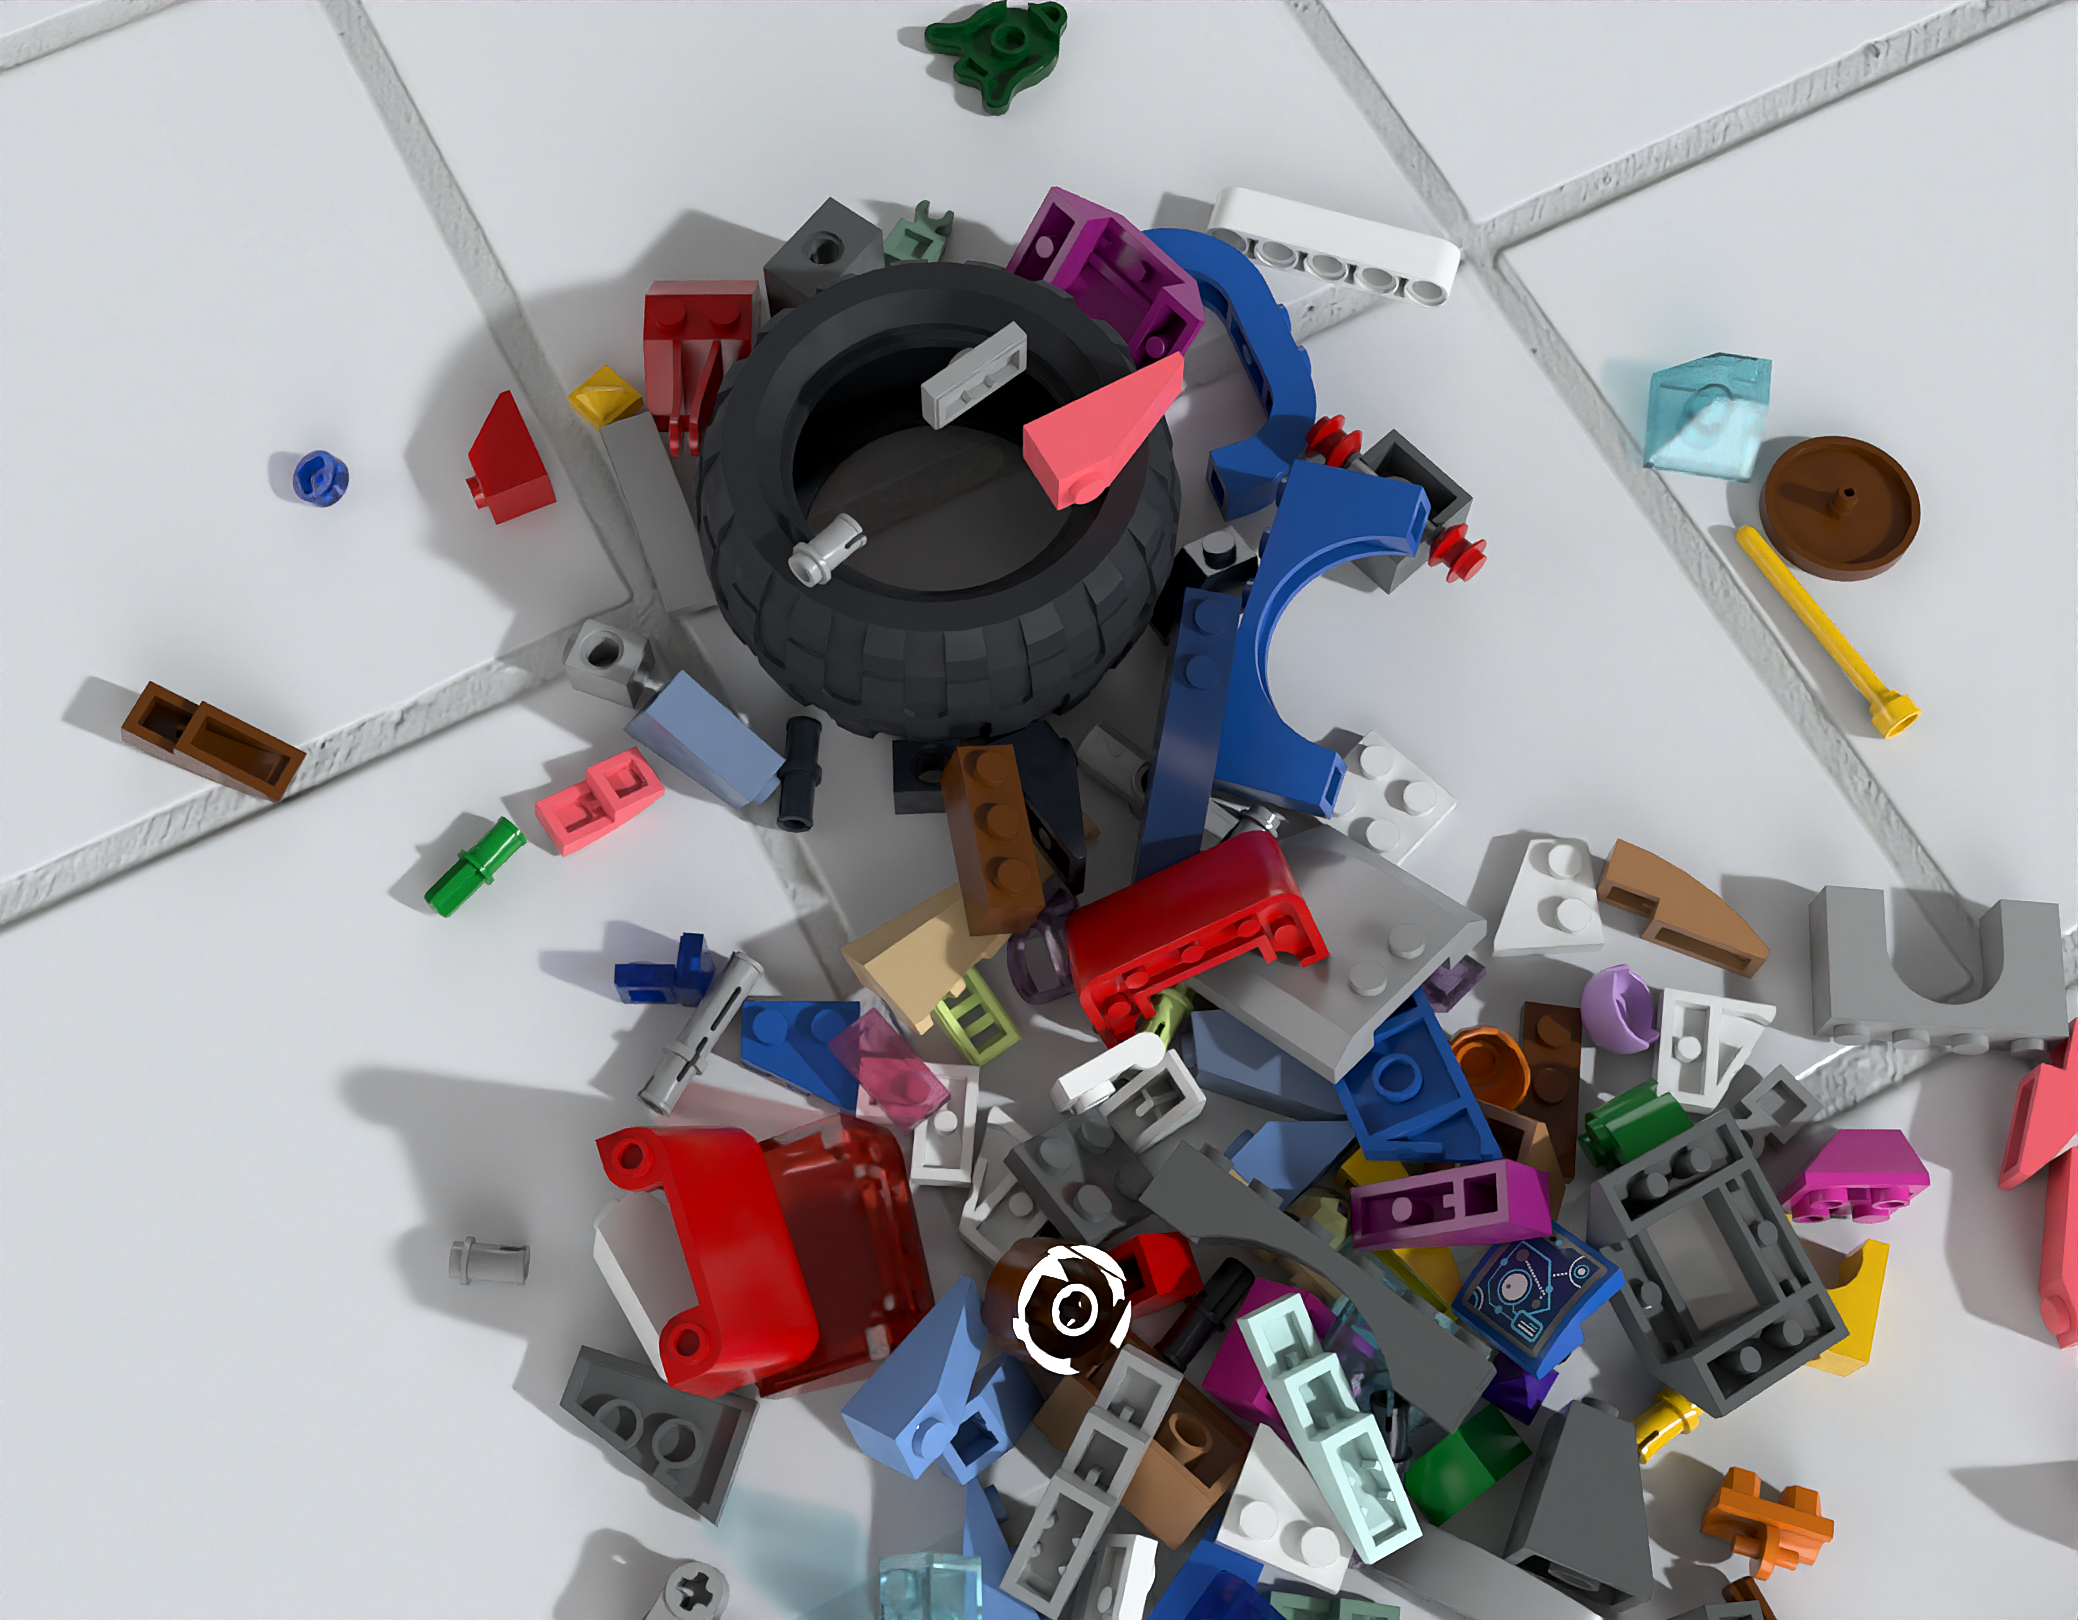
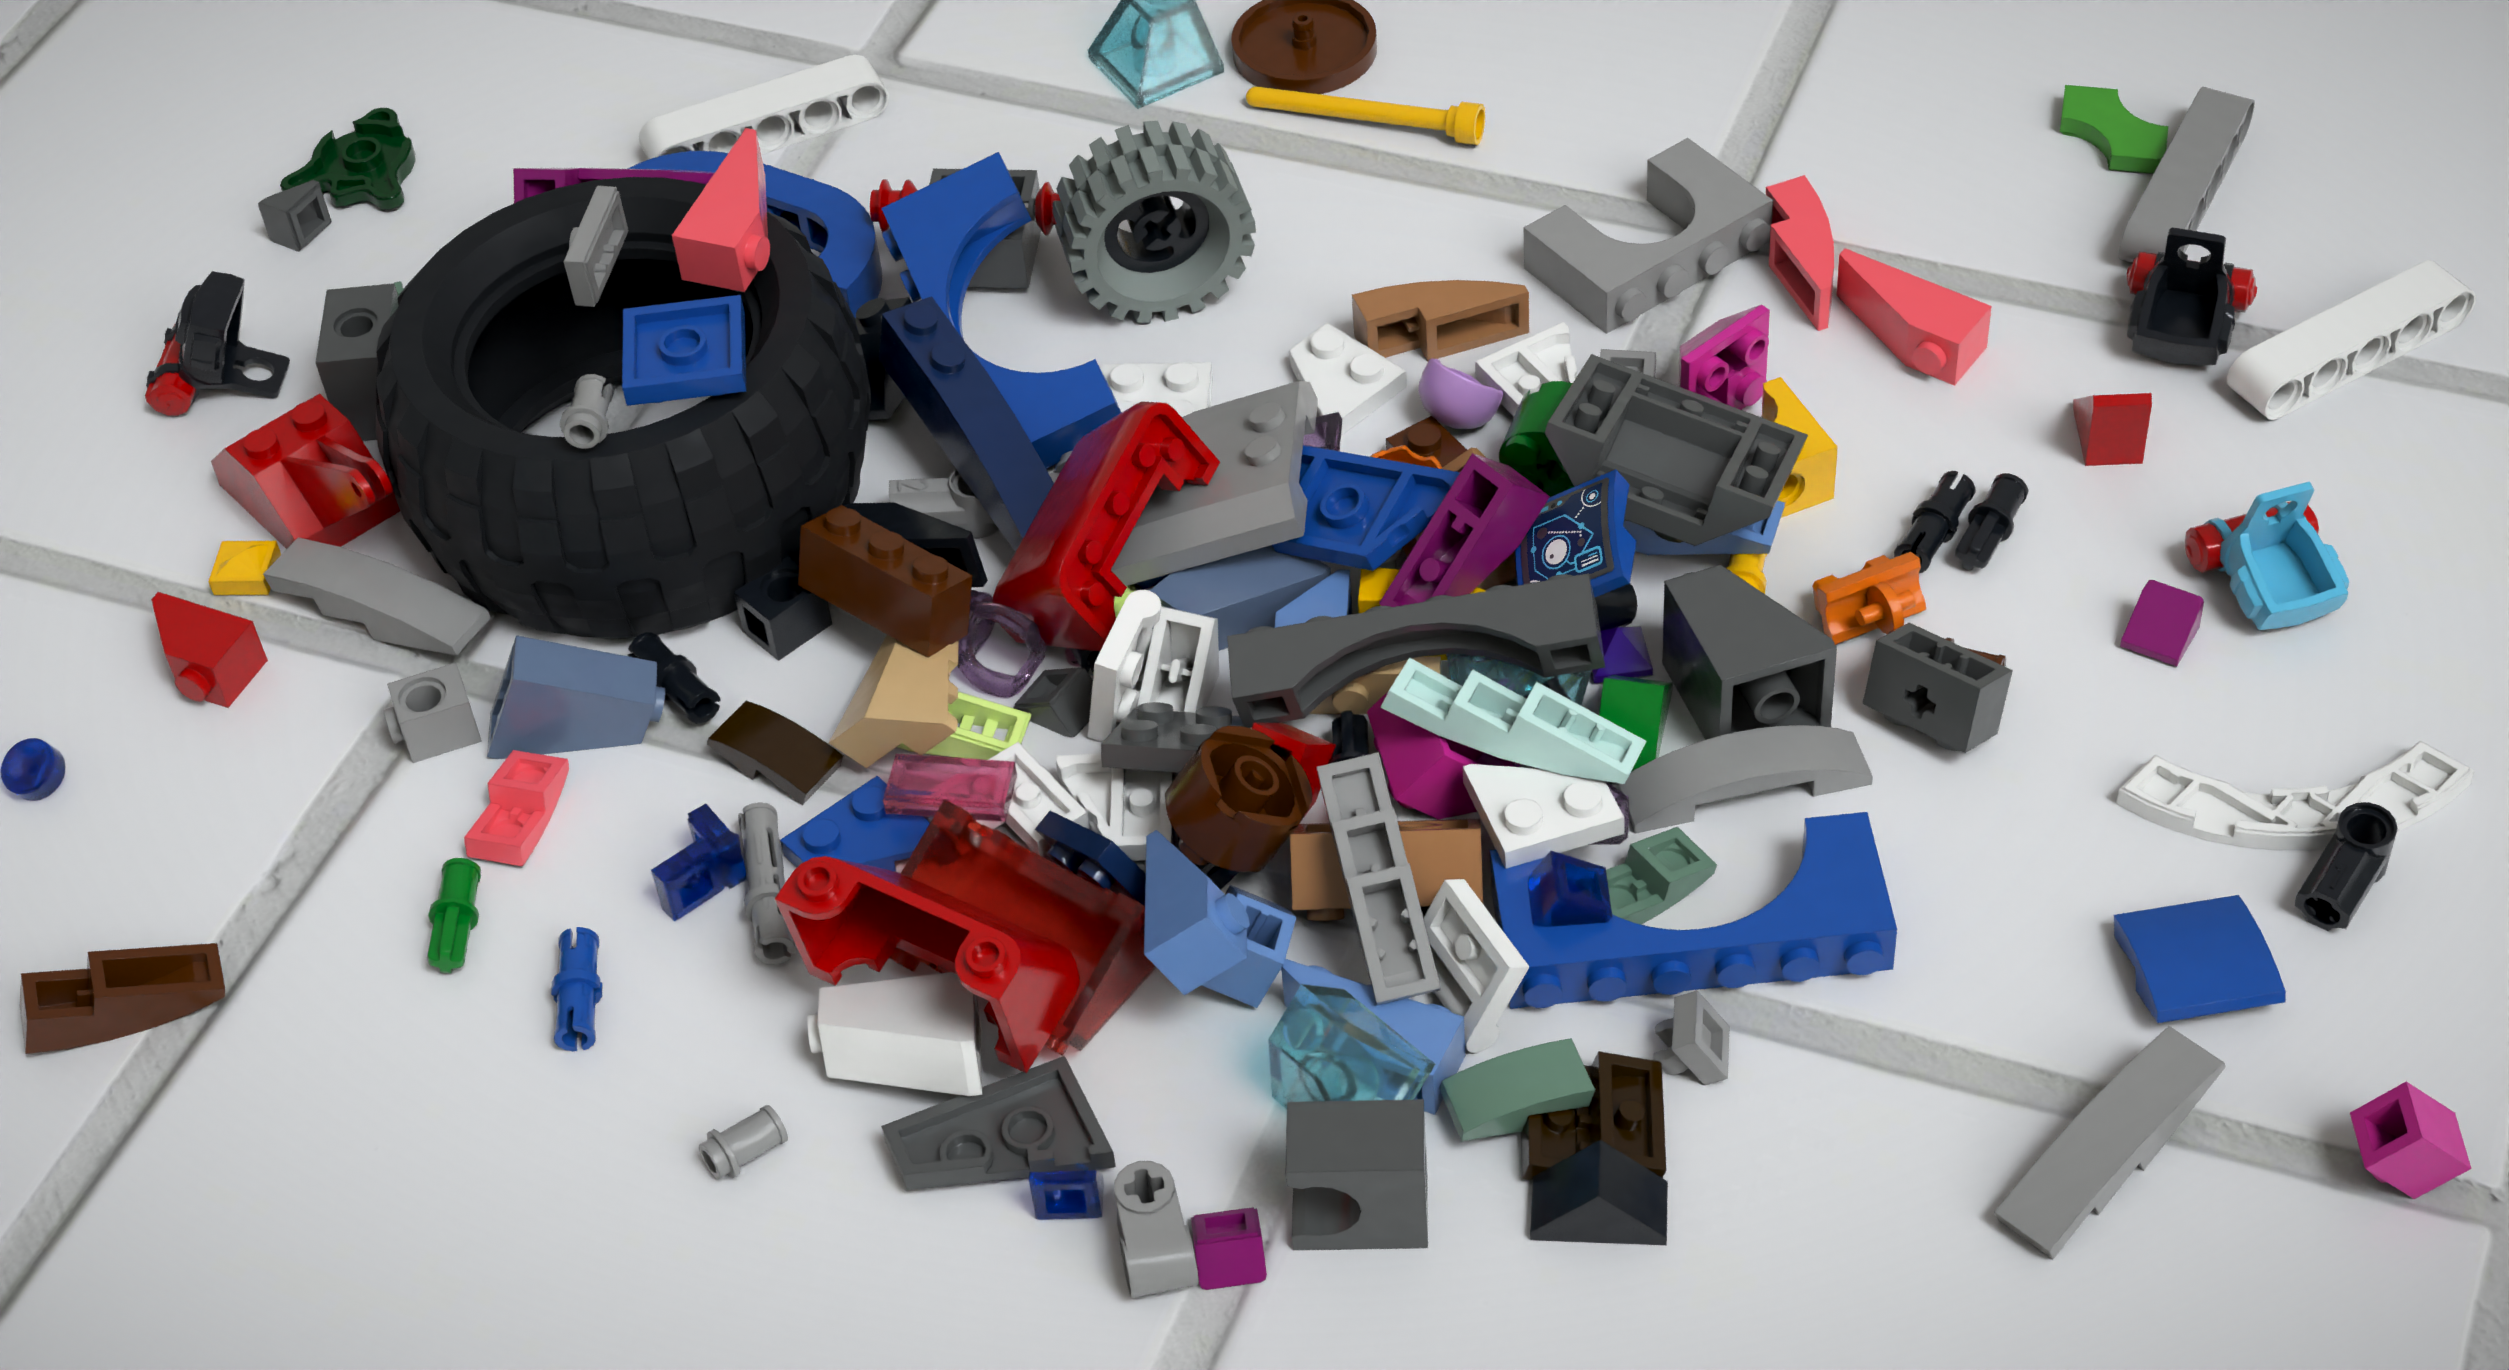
camera: 35 degrees left, 20 degrees down
(499, 1012) = (576, 989): none -> blue pin
(666, 1528) = (1067, 1194): none -> clear blue slope
(731, 167) = (206, 348): none -> black piece
(810, 908) = (777, 747): none -> dark brown slope
(909, 72) = (295, 215): none -> dark grey slope
(932, 1241) = (1092, 856): none -> dark blue wing
(949, 546) = (683, 350): none -> blue plate
(1054, 1041) = (1059, 700): none -> dark grey slope
(1510, 639) = (1169, 253): none -> light grey wheel
(1900, 1488) = (1937, 518): none -> black pin
(1947, 1532) = (1991, 521): none -> black axle

